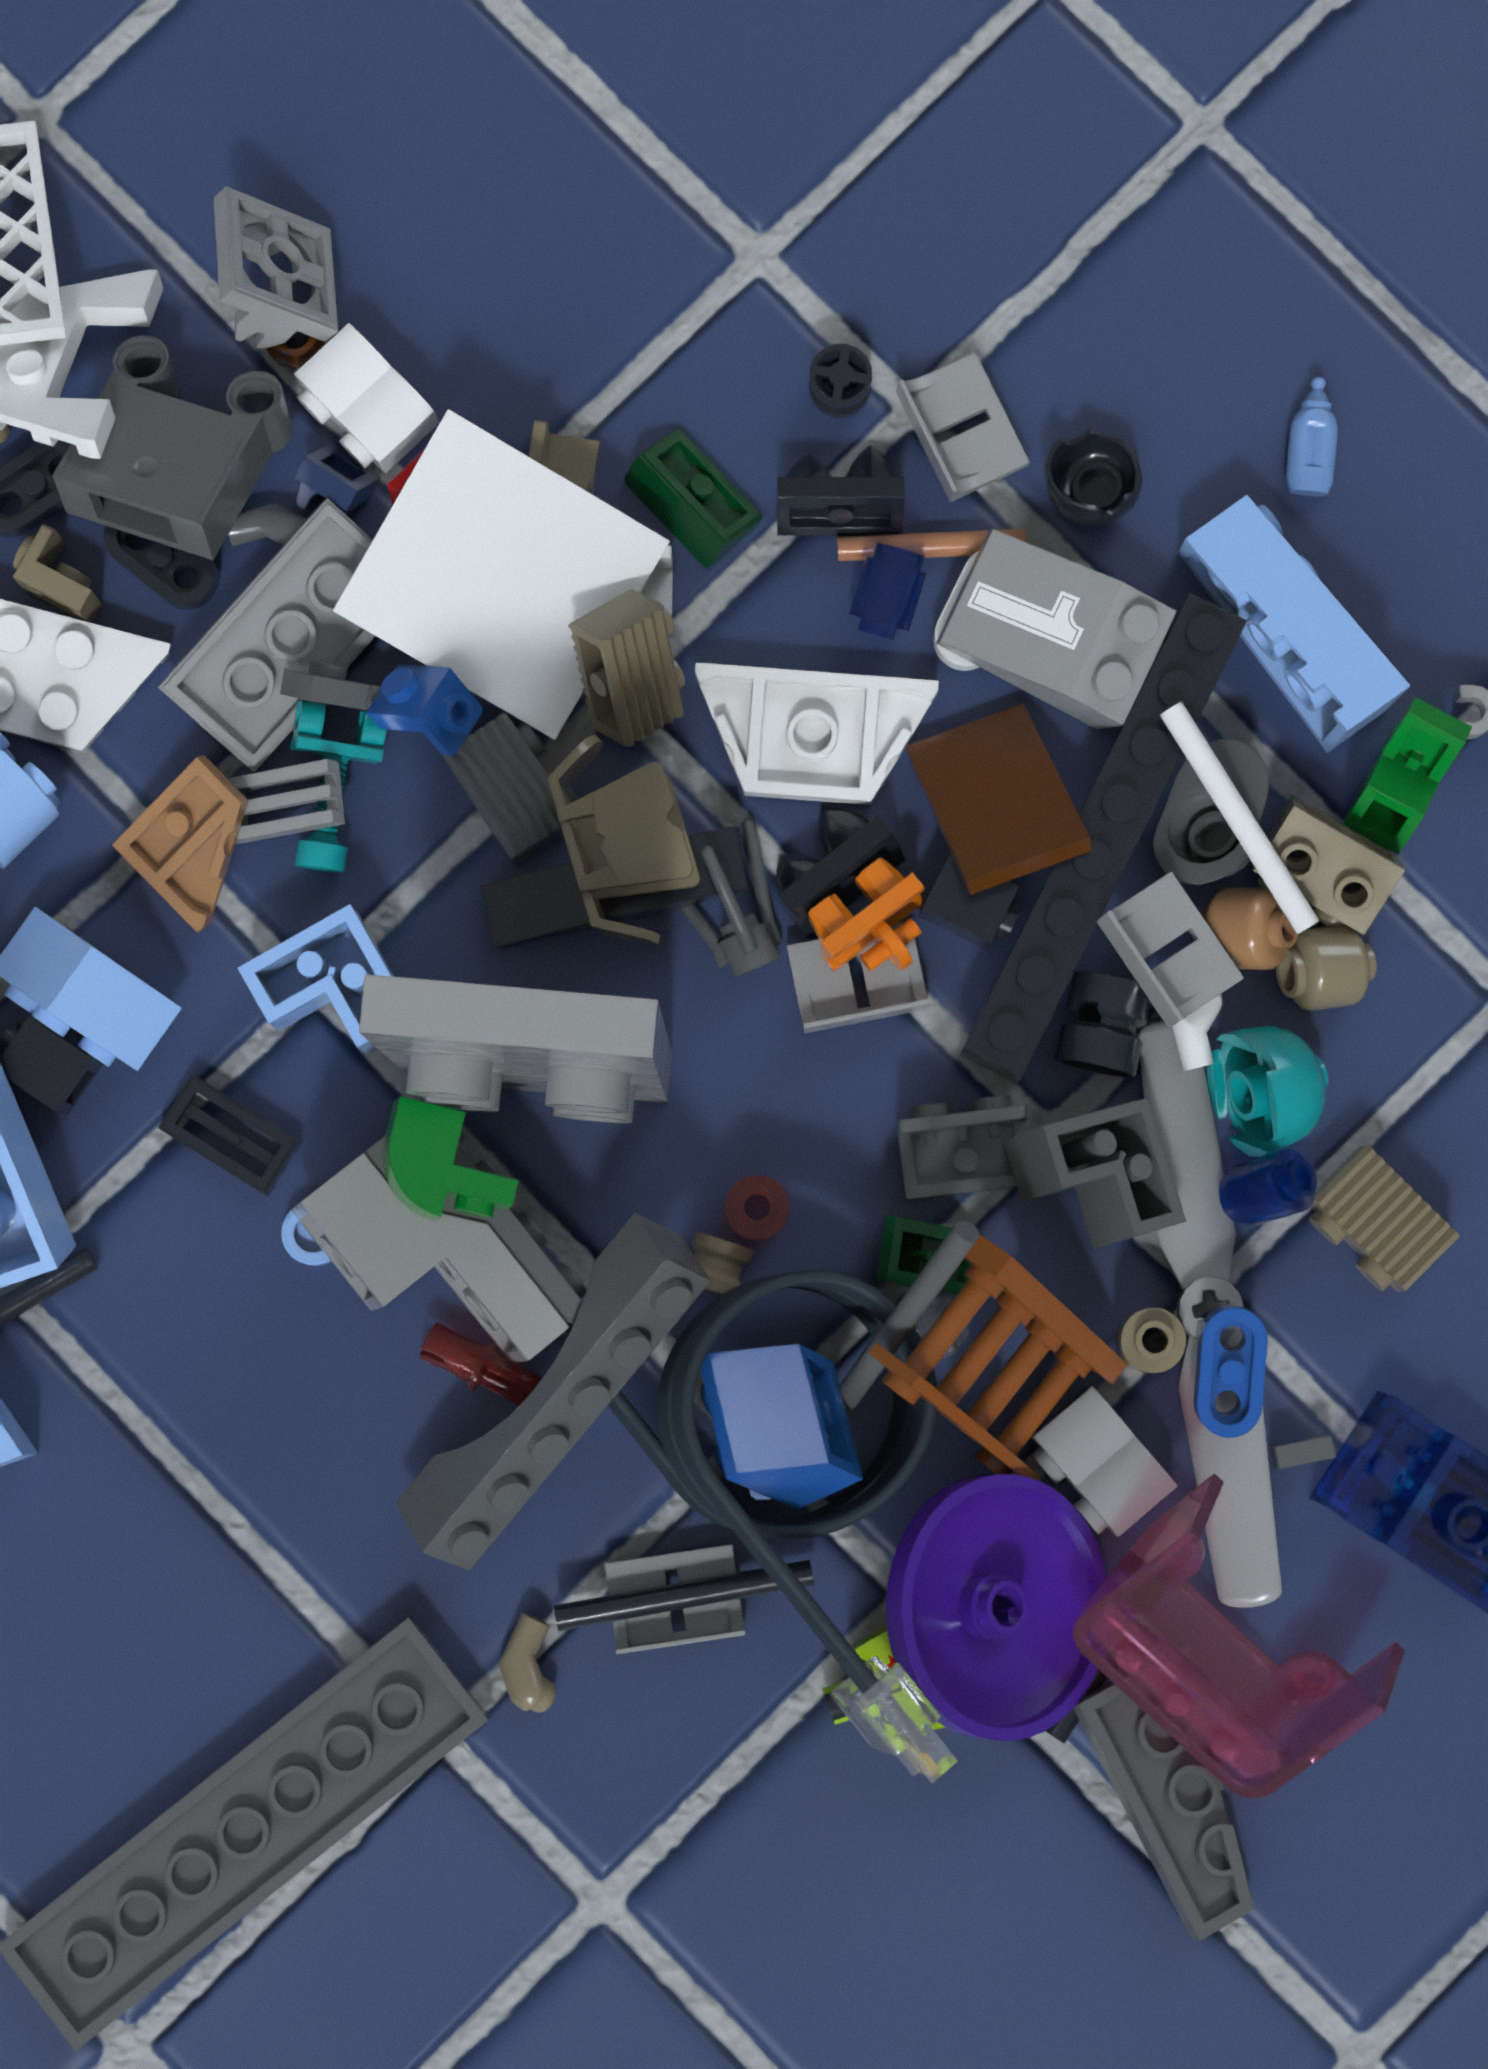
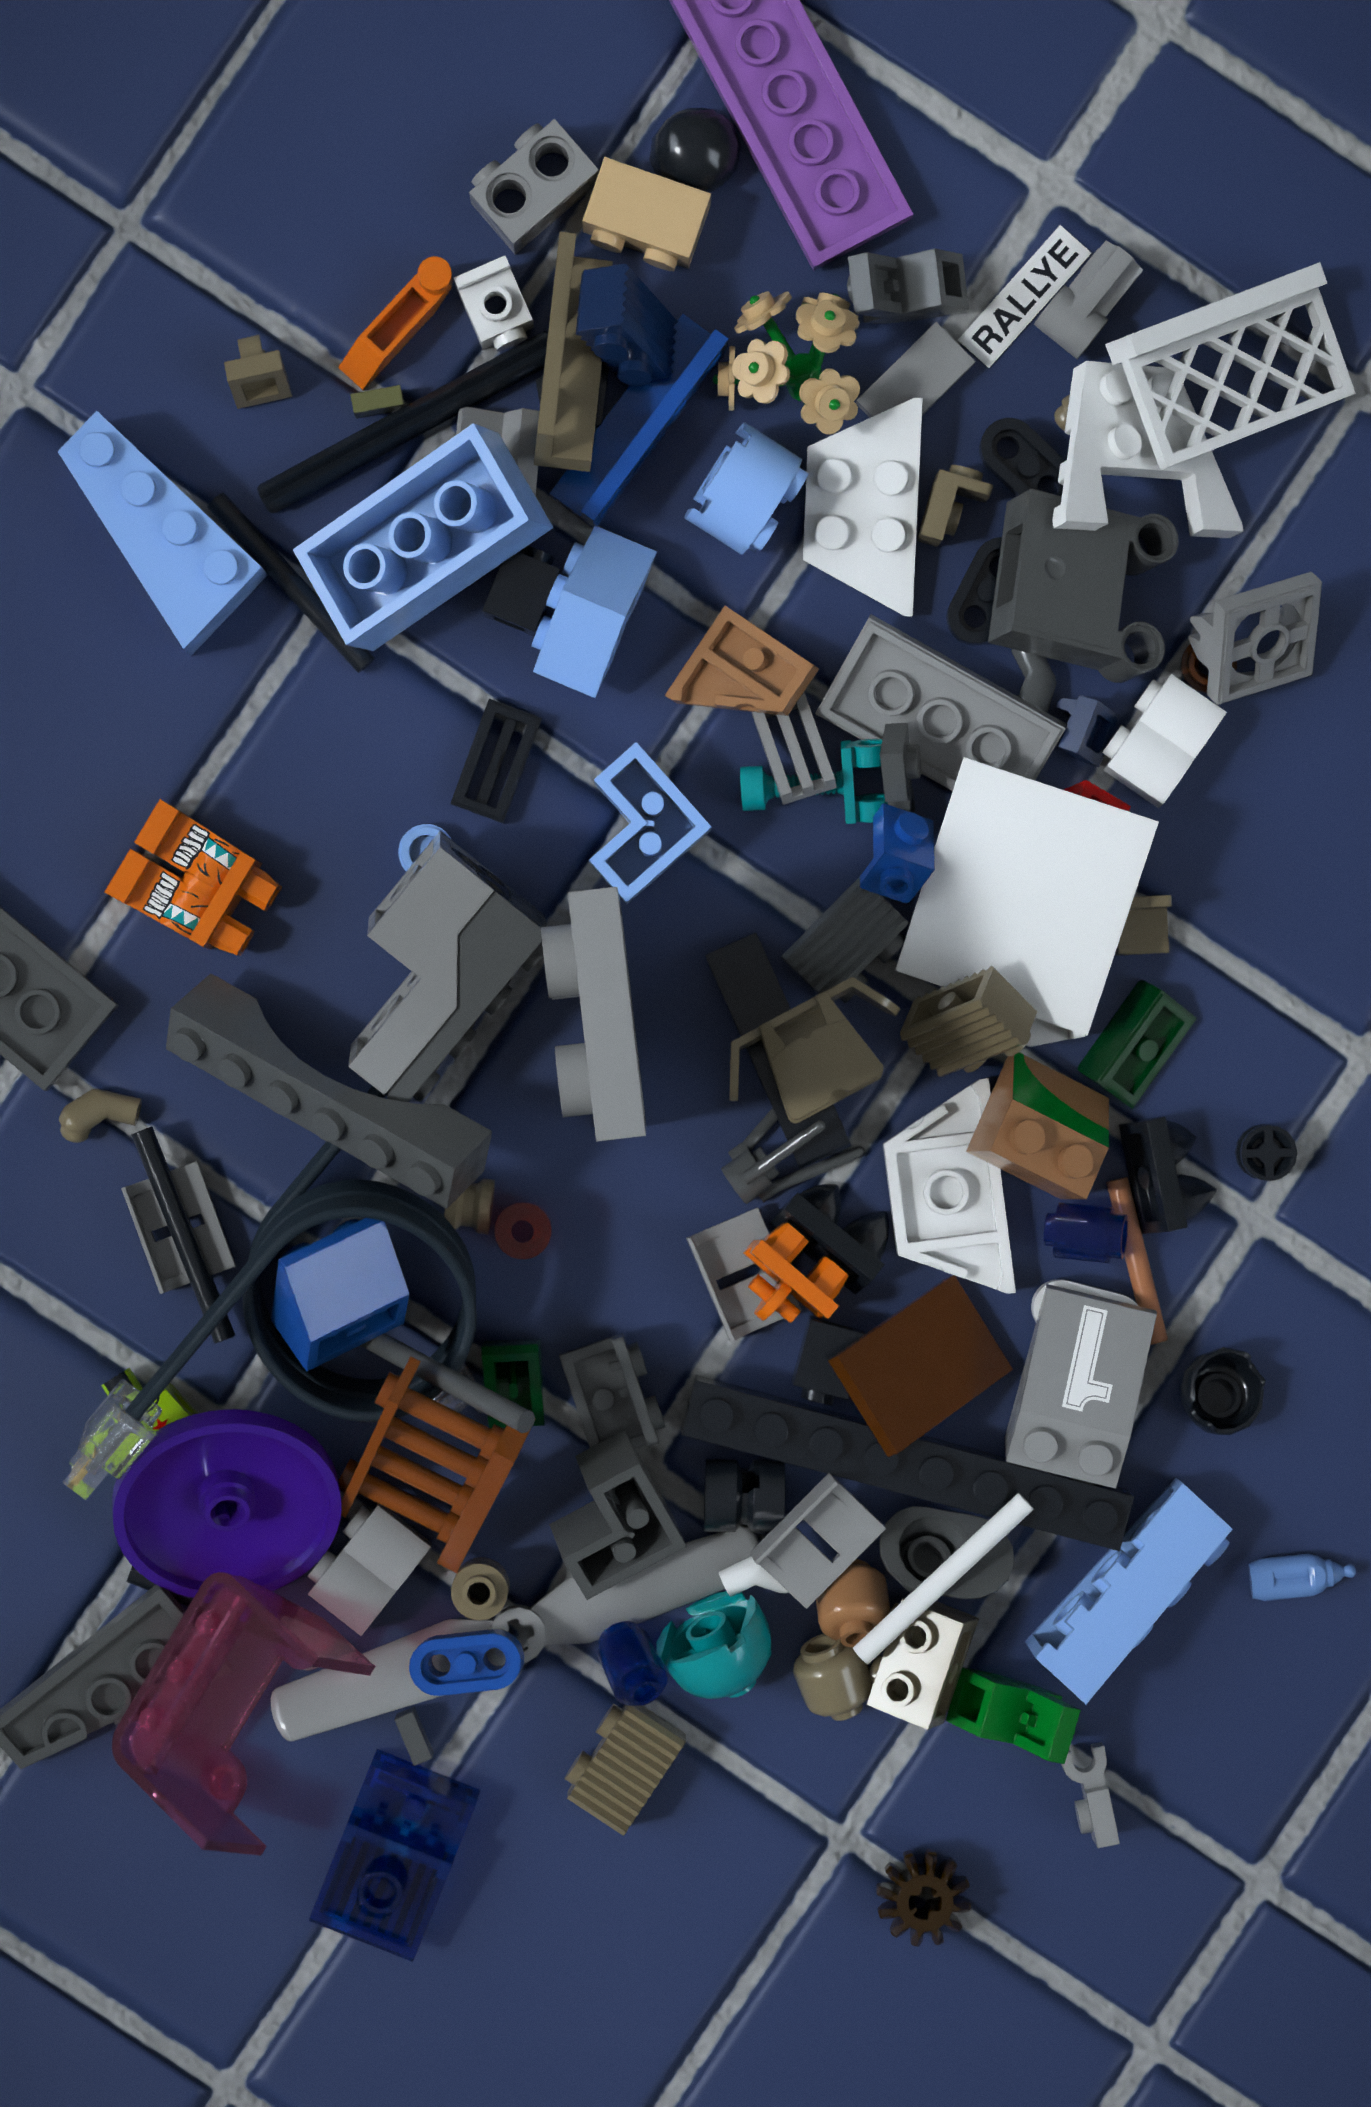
camera: 75 degrees right, 5 degrees up
(300, 1482) = (208, 892): none -> orange hips
(421, 1166) = (493, 943): green brick -> none
(477, 1364) = (341, 1020): clear red axle -> none
(765, 613) = (1043, 1129): none -> medium nougat slope
(952, 397) = (1268, 1248): light grey piece -> none

